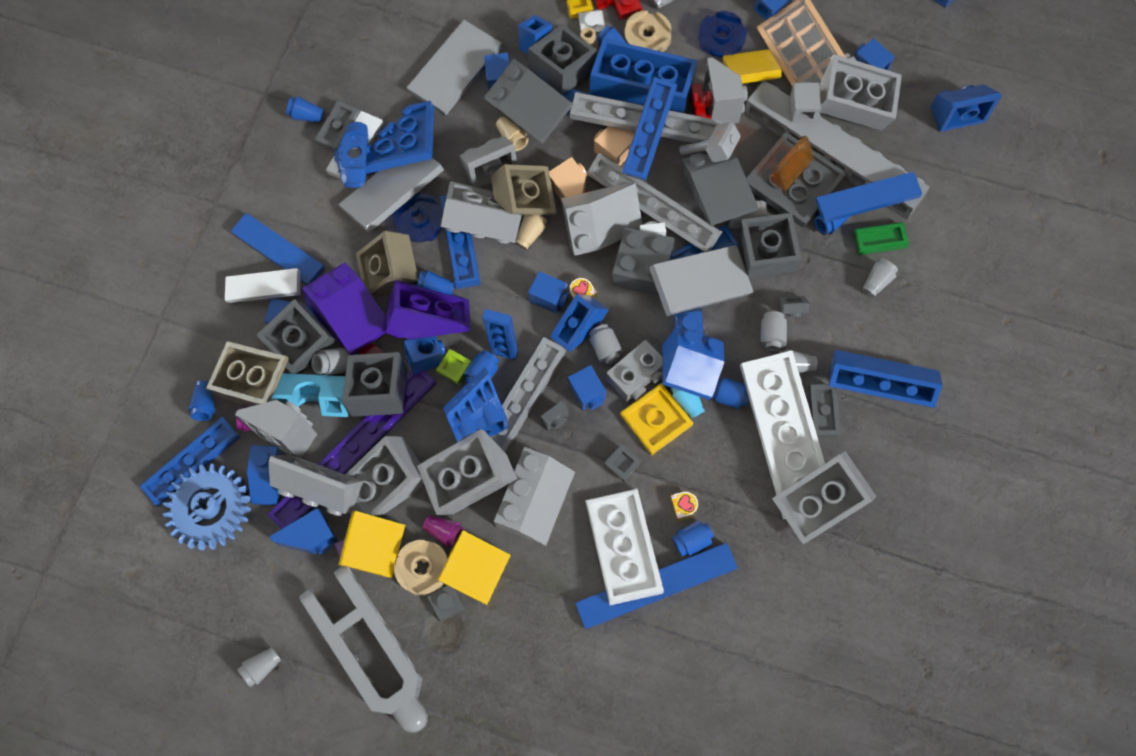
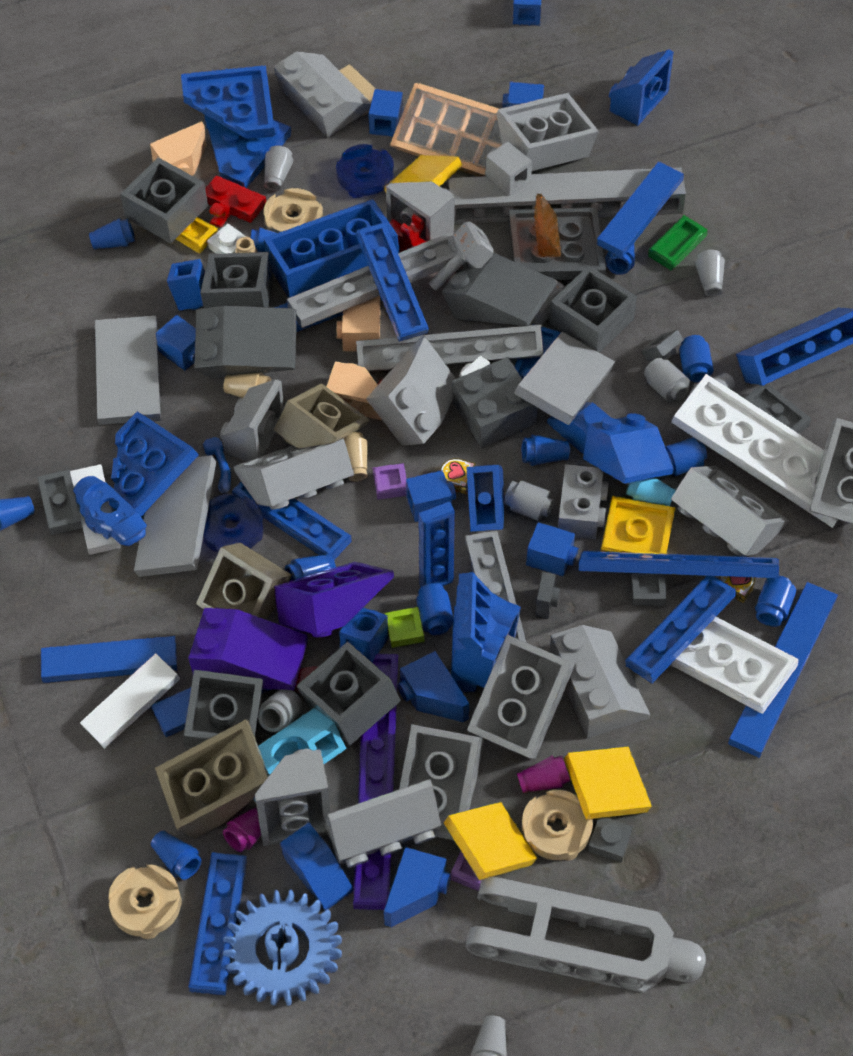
camera: 45 degrees left, 15 degrees down
(151, 406) = (147, 920): none -> tan plate
(431, 419) = (433, 689): none -> blue slope
(454, 158) = (214, 446): none -> blue piece
(538, 261) = (389, 481): none -> medium lavender tile
(614, 506) = (680, 628): none -> blue tile
(648, 317) = (544, 450): none -> blue cone
(654, 465) = (679, 564): none -> blue tile
(725, 453) = (728, 510): none -> light grey slope
(806, 331) = (695, 358): none -> blue brick

